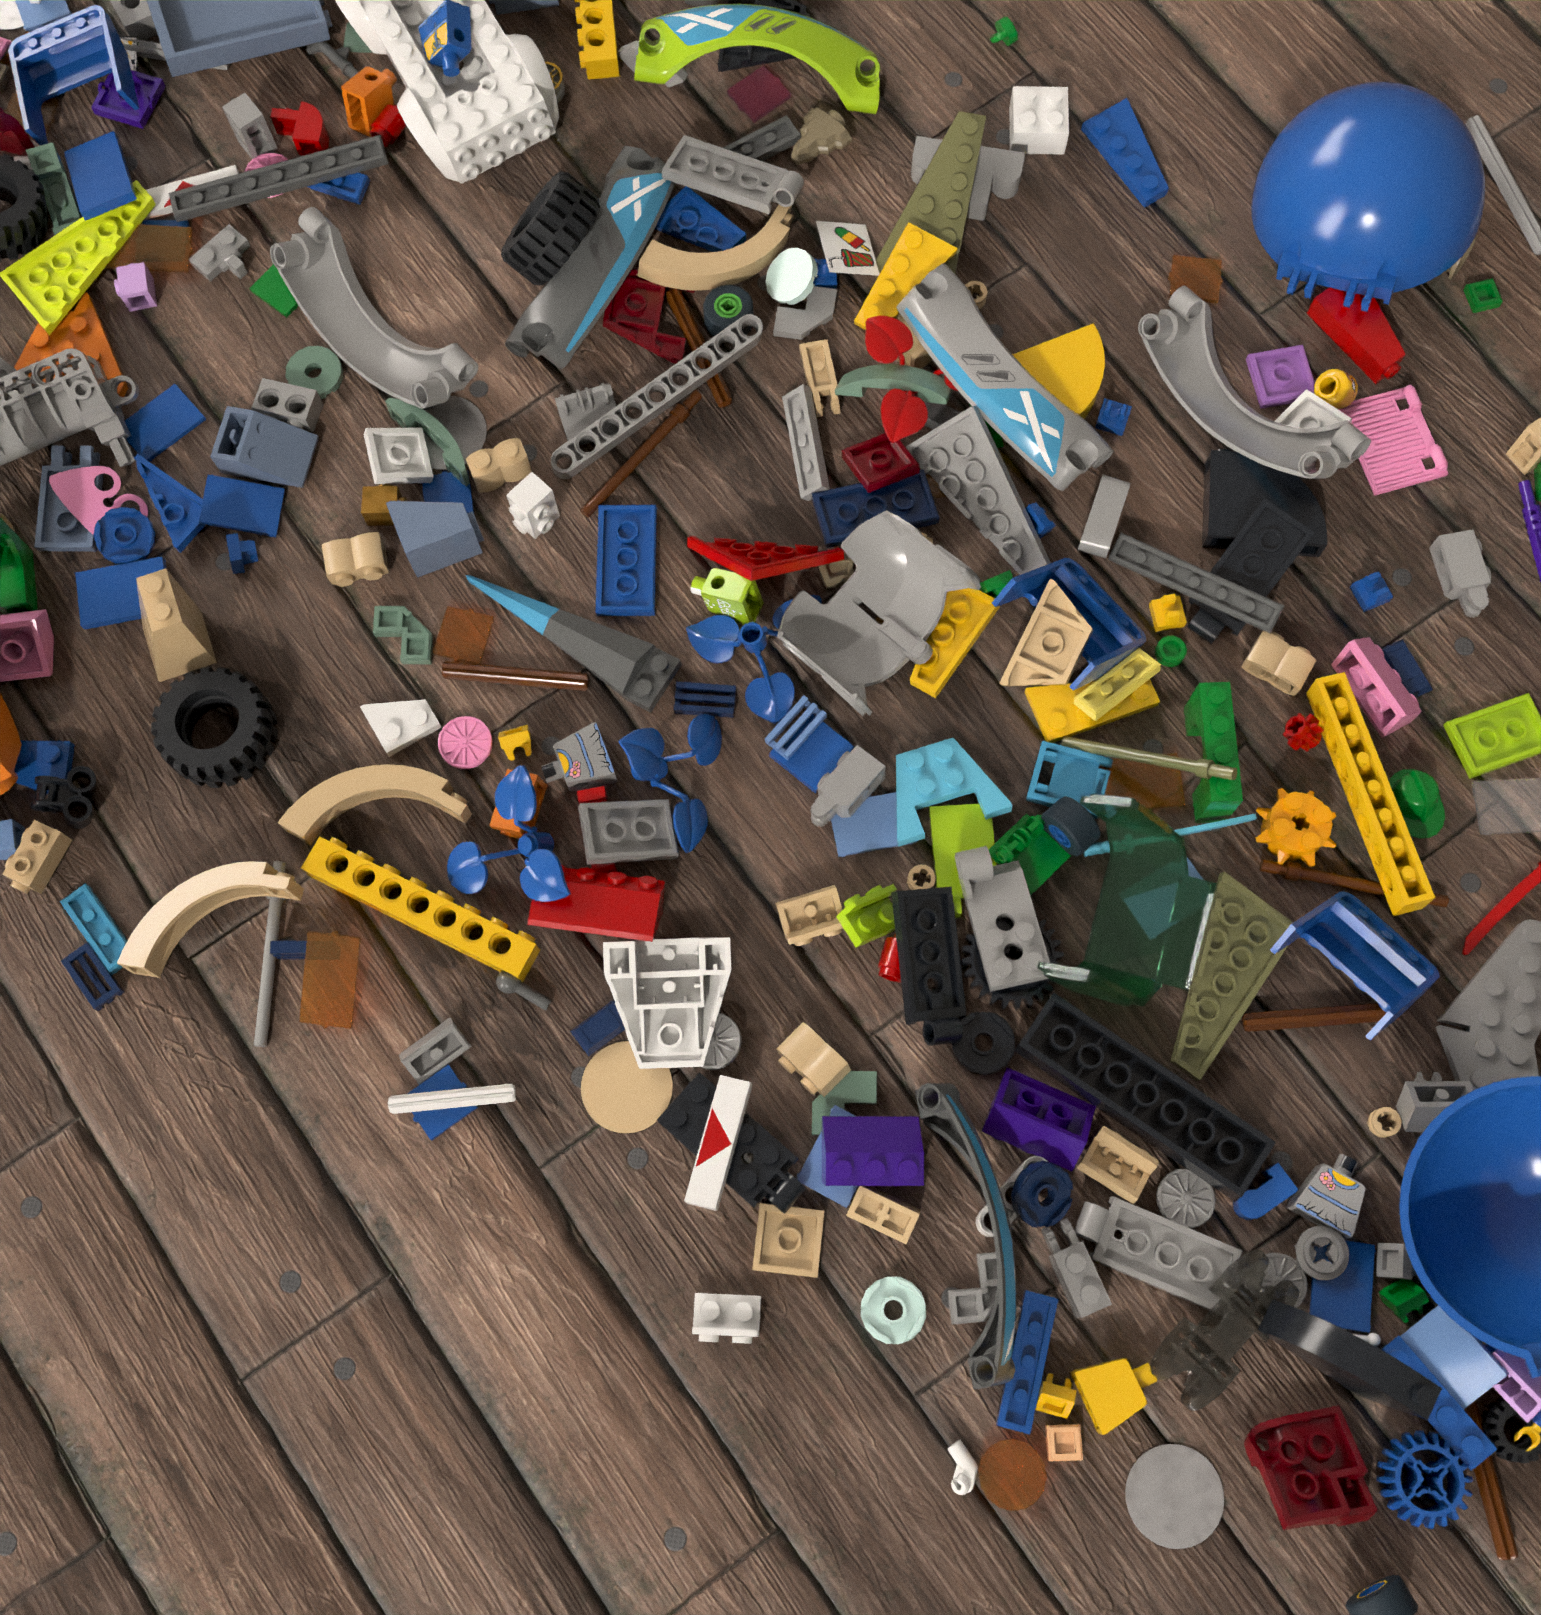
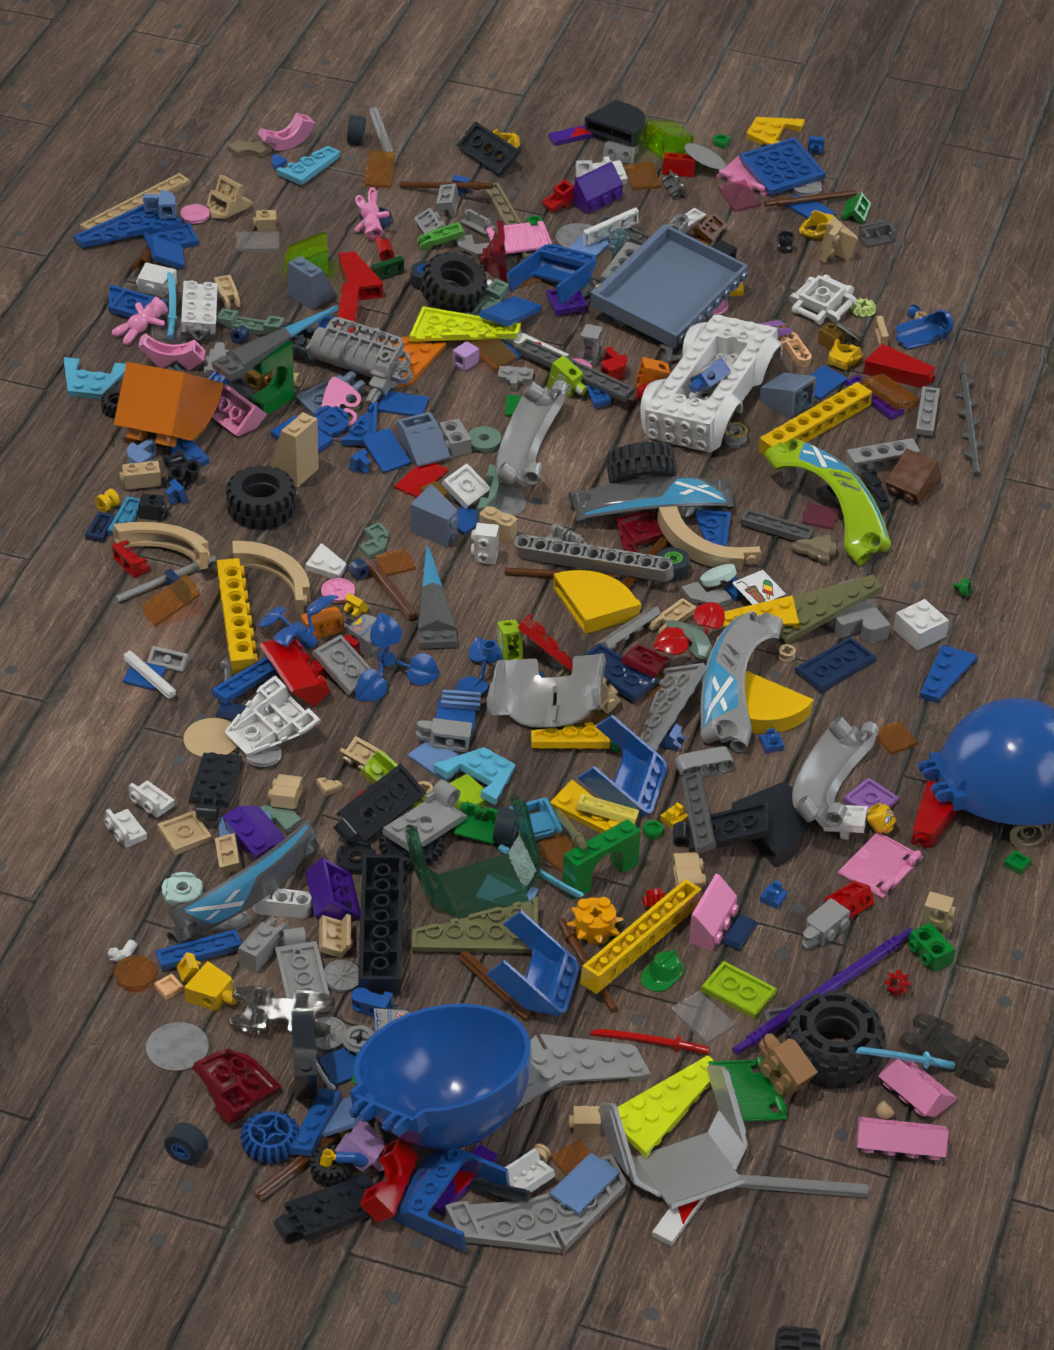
camera: 50 degrees right, 30 degrees down
(49, 935) = (108, 500): none -> yellow wheel
(109, 831) = (176, 493): none -> blue tile
(112, 882) = (152, 507): none -> black brick
(194, 978) = (129, 560): none -> red hinge
(287, 197) = (565, 370): none -> lime torso
(328, 499) = (419, 477): none -> red piece
(355, 559) = (395, 501): tan brick -> none
(448, 691) = (359, 568): none -> dark blue piece
(560, 982) = (244, 680): none -> blue plate
(626, 560) = (494, 598): blue tile -> none
(699, 1248) = (151, 798): none -> white bracket
(705, 688) = (448, 662): dark blue tile -> none
(718, 1143) = (210, 769): white tile -> none
(724, 444) = (595, 599): none -> yellow brick
(731, 175) = (749, 519): light grey hinge -> none
(827, 993) = (329, 786): none -> tan tile
(1026, 1192) = (287, 892): dark blue tile -> none
(1029, 256) = (835, 664): none -> dark blue tile
(1049, 643) = (614, 765): tan wing -> none
(1434, 510) = (854, 897): none -> red bracket

